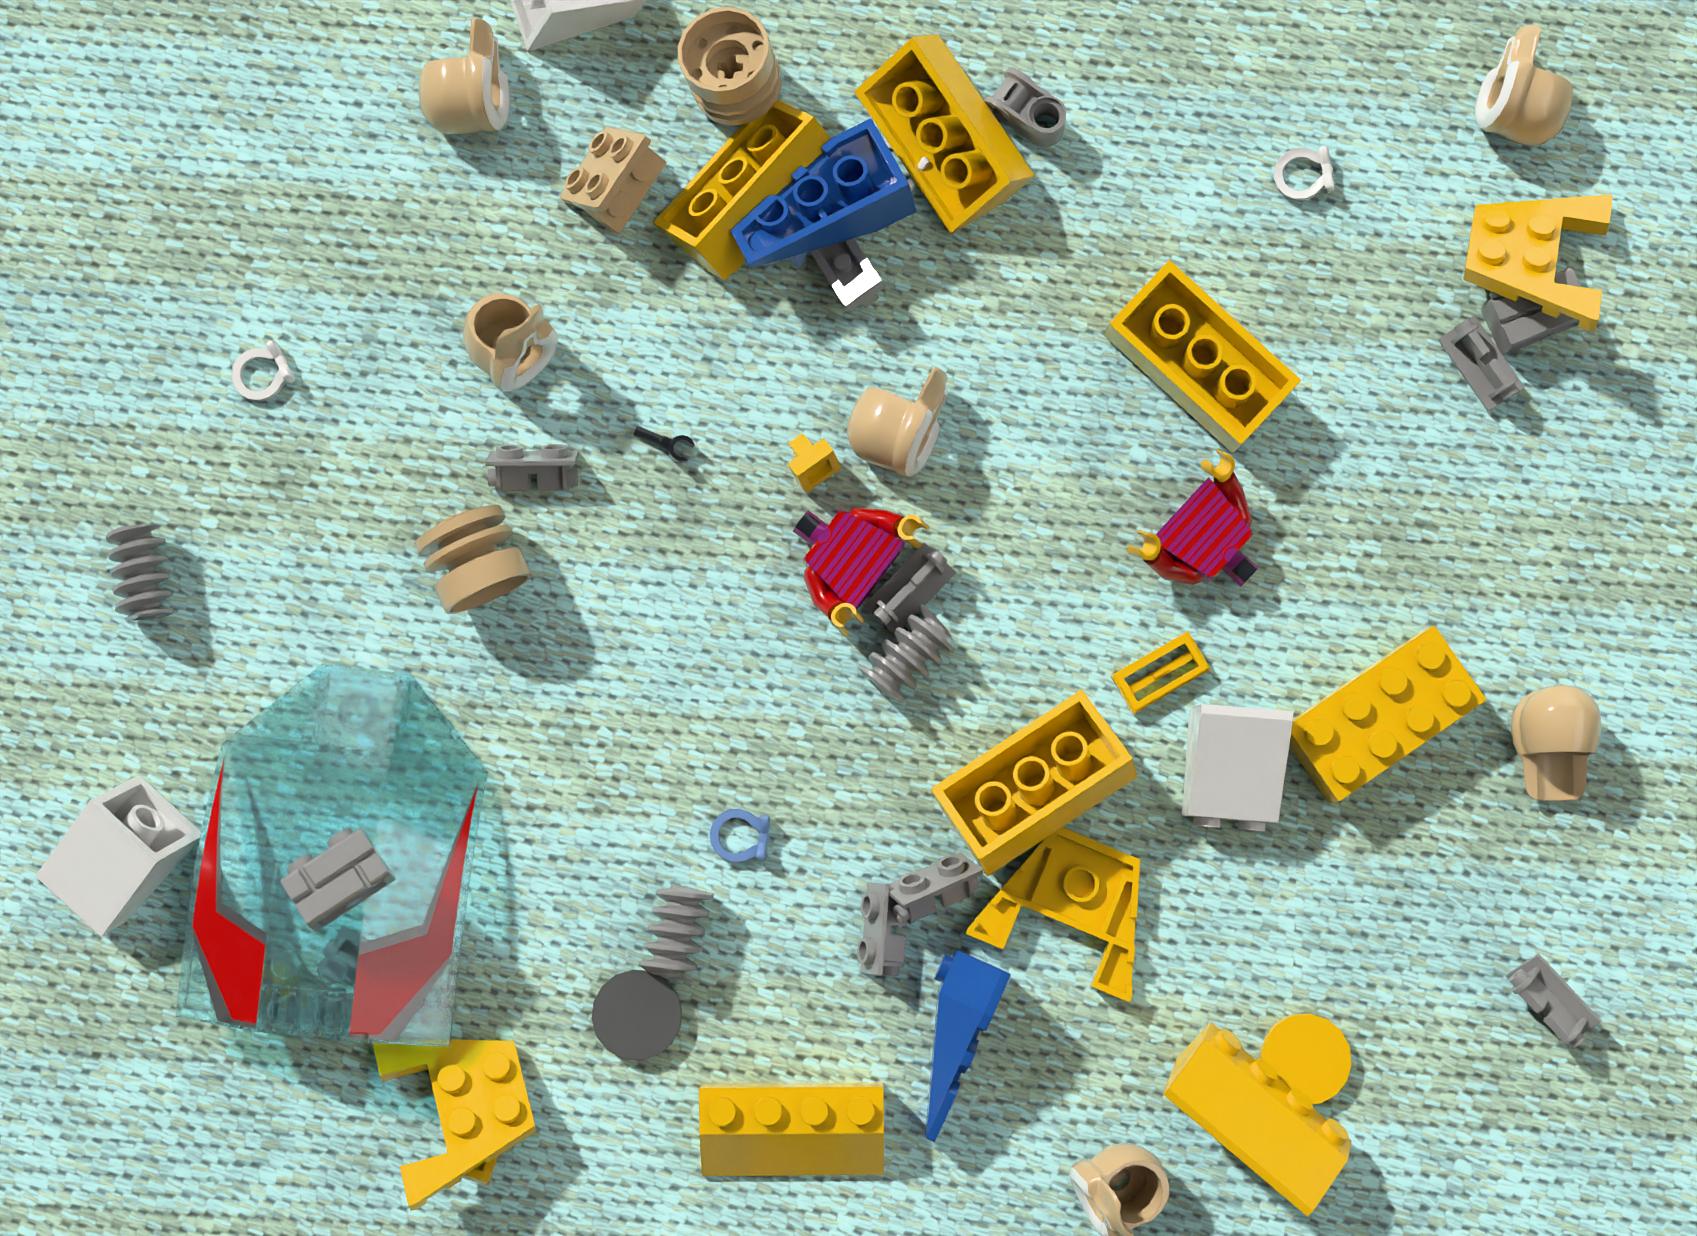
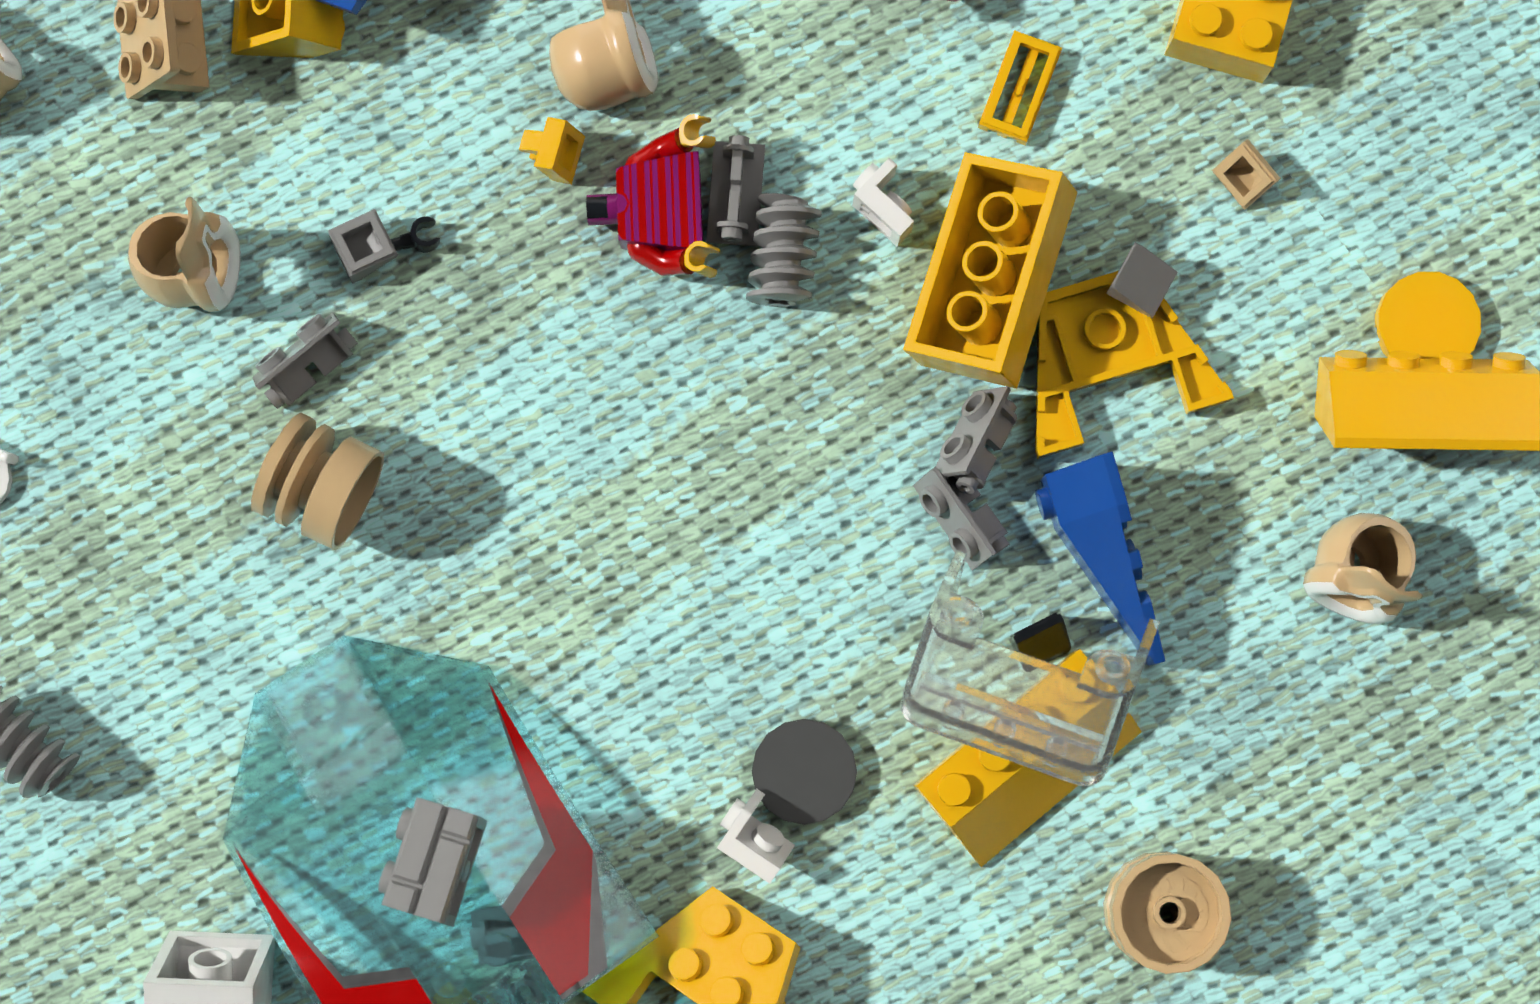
camera: 35 degrees left, 0 degrees up
(563, 1033) = (754, 843): none -> white bracket
(633, 423) = (362, 245): none -> light grey slope
(675, 931) = (778, 666): light grey piece -> none
(758, 850) = (792, 535): medium blue piece -> none
(807, 1091) = (1014, 701): none -> clear windscreen
(865, 1058) = (1043, 639): none -> slope
(999, 684) = (886, 212): none -> white bracket
(1131, 873) = (1142, 281): none -> light grey slope
(1235, 765) = (1155, 110): white slope -> none
(1264, 857) = (1246, 174): none -> tan slope

